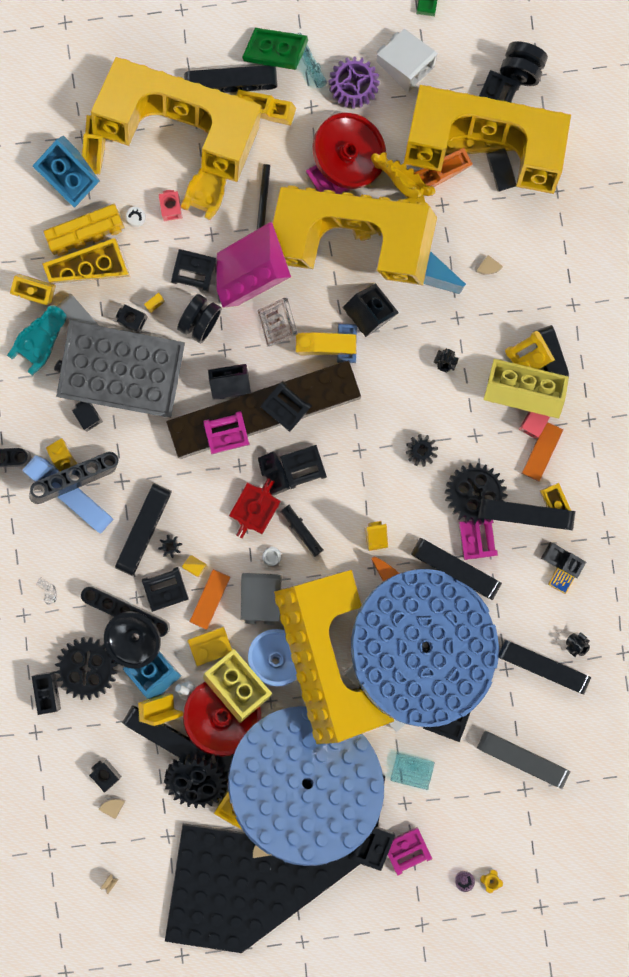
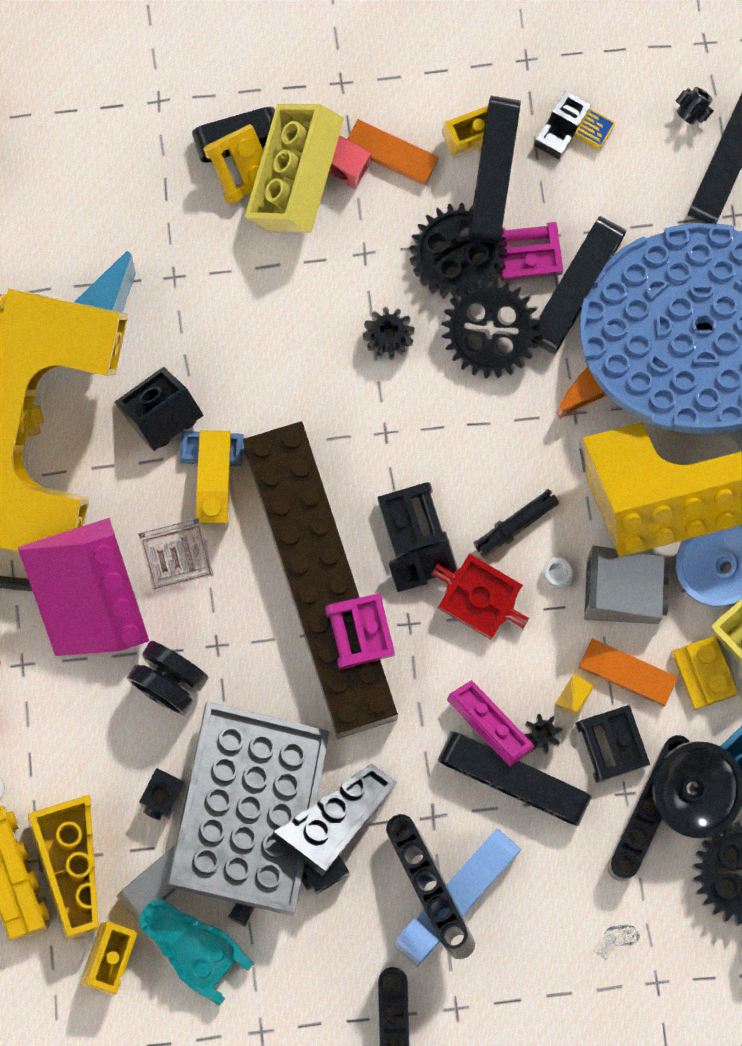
camera: 90 degrees left, 10 degrees down
(60, 455) = (389, 915): yellow bracket -> none
(111, 418) = (331, 824): none -> wing
(154, 302) = (136, 756): yellow tile -> none
(175, 514) = (490, 723): none -> dark pink tile
(195, 264) = (73, 689): black plate -> none
(229, 381) = (274, 628): black slope -> none
(283, 412) = (327, 540): black plate -> none
(376, 535) = (525, 401): yellow slope -> none
(408, 513) = (493, 299): none -> black gear
(446, 360) = (244, 292): black gear -> none
(489, 266) = (93, 225): tan tile -> none

